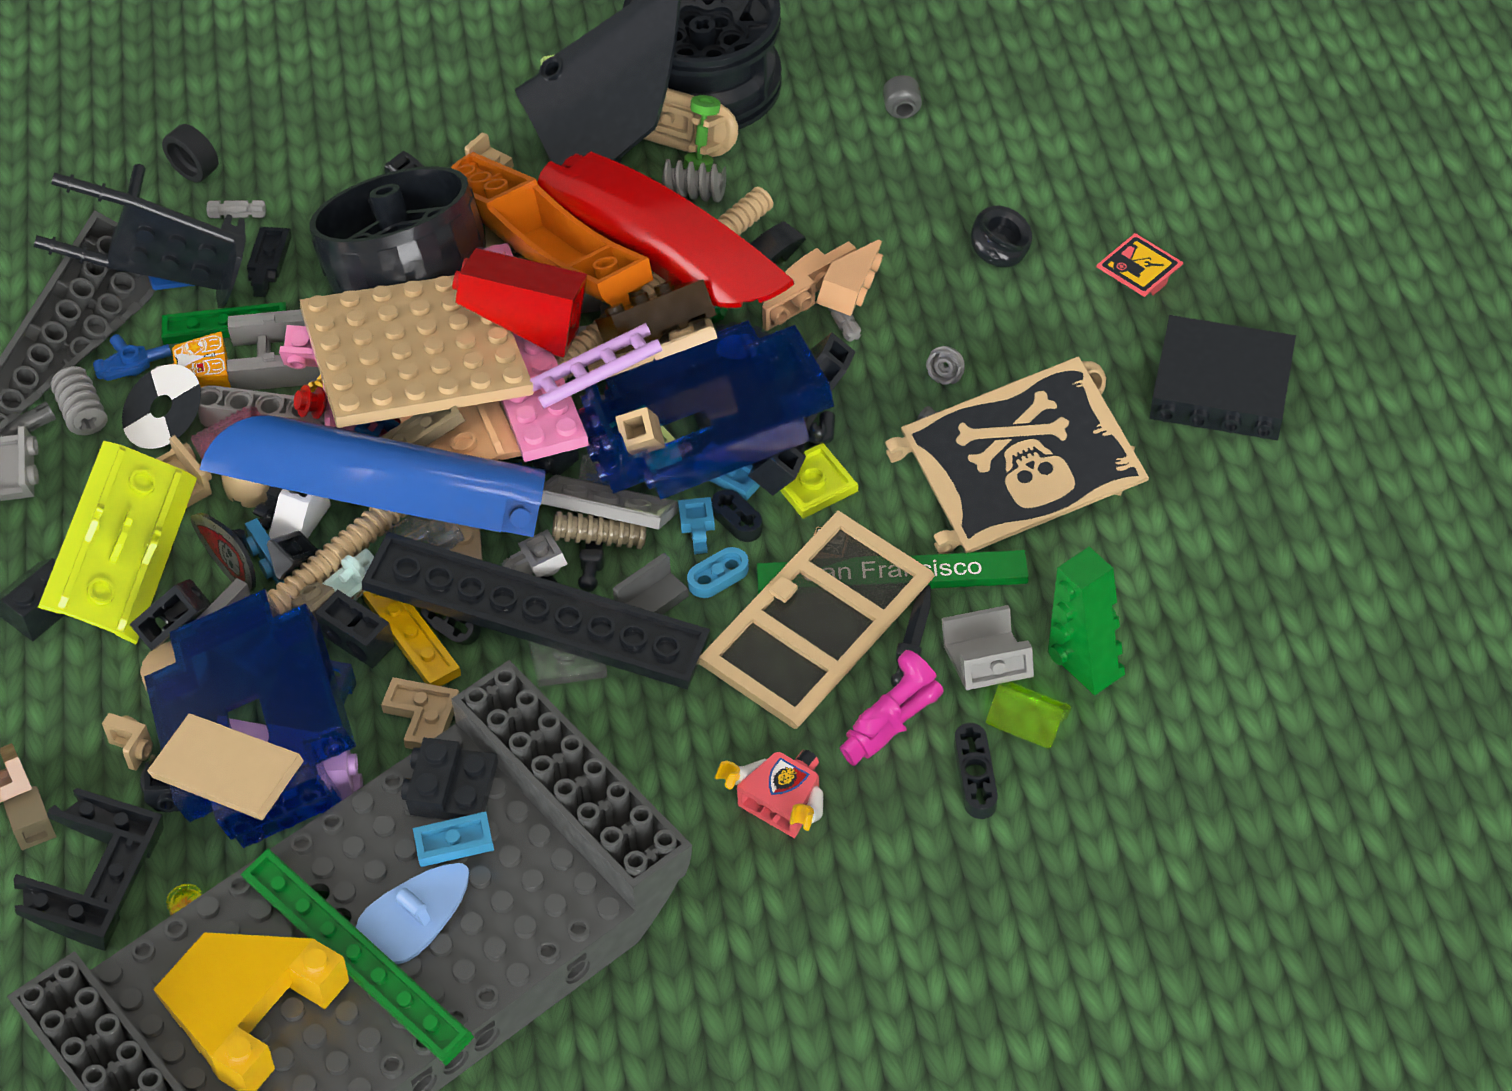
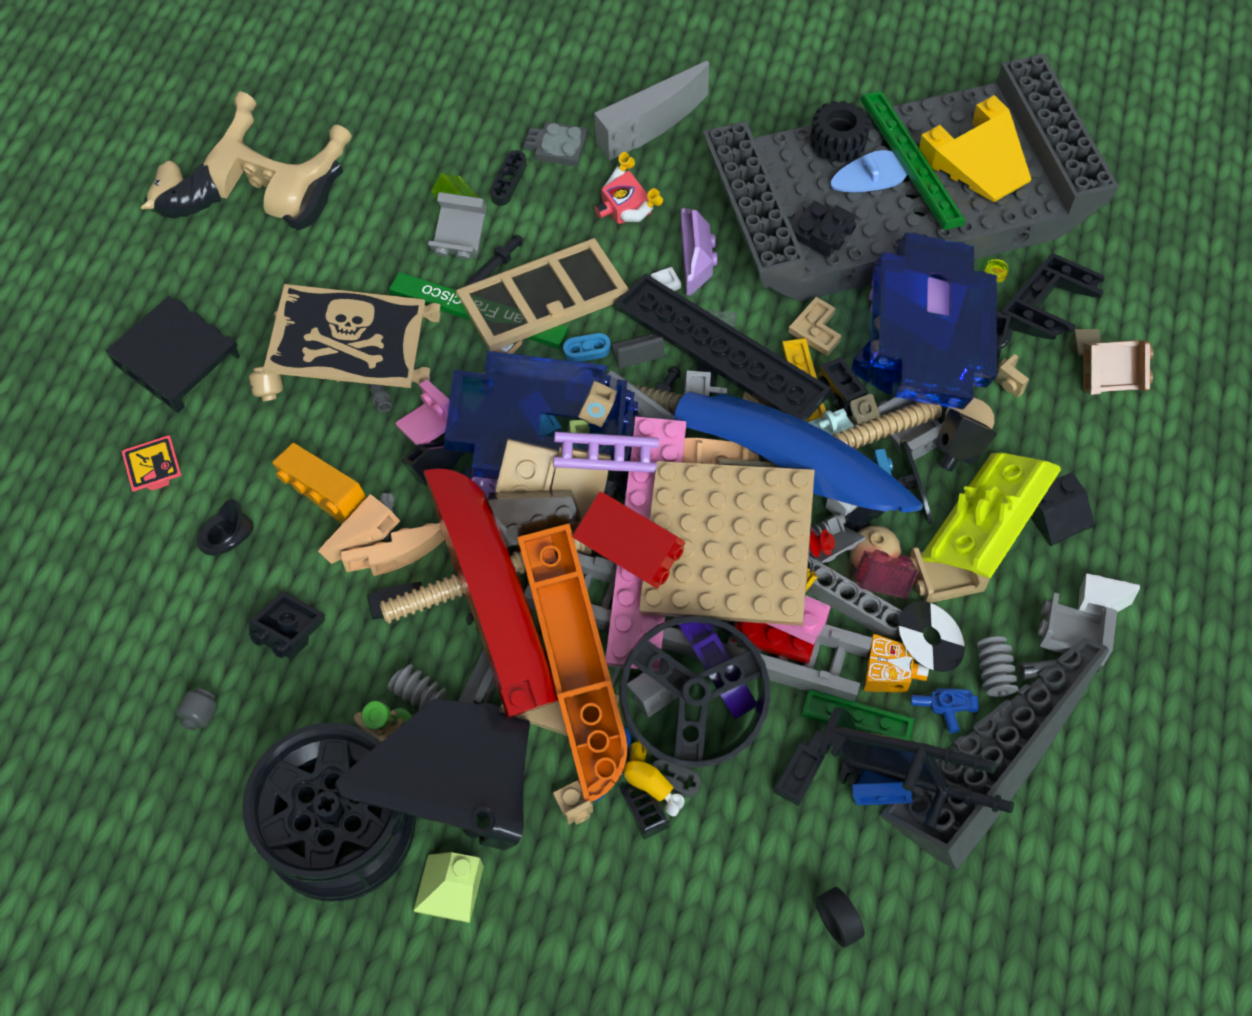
camera: 155 degrees left, 10 degrees up
(225, 766) = (960, 270): tan tile -> none
(236, 208) = (813, 846): light grey axle -> none
(289, 552) = (873, 441): black slope -> none
(453, 839) = (834, 193): dark azure plate -> none
(476, 912) = (839, 131): none -> black tyre
(639, 755) = (697, 249): none -> lavender wedge
(662, 706) = (668, 278): none -> white tile
(817, 927) = (650, 111): none -> light grey slope
(859, 413) = (427, 420): none -> bright pink bracket
(869, 184) = (285, 625): none -> black plate
(886, 717) = (537, 214): dark pink piece -> none
(928, 304) = (319, 482): none -> light orange wedge
(939, 371) = (342, 438): light grey plate -> none
(940, 856) = (557, 143): none -> piece
(1085, 621) = (397, 195): green wedge -> none
(1360, 606) = (290, 190): none -> tan animal

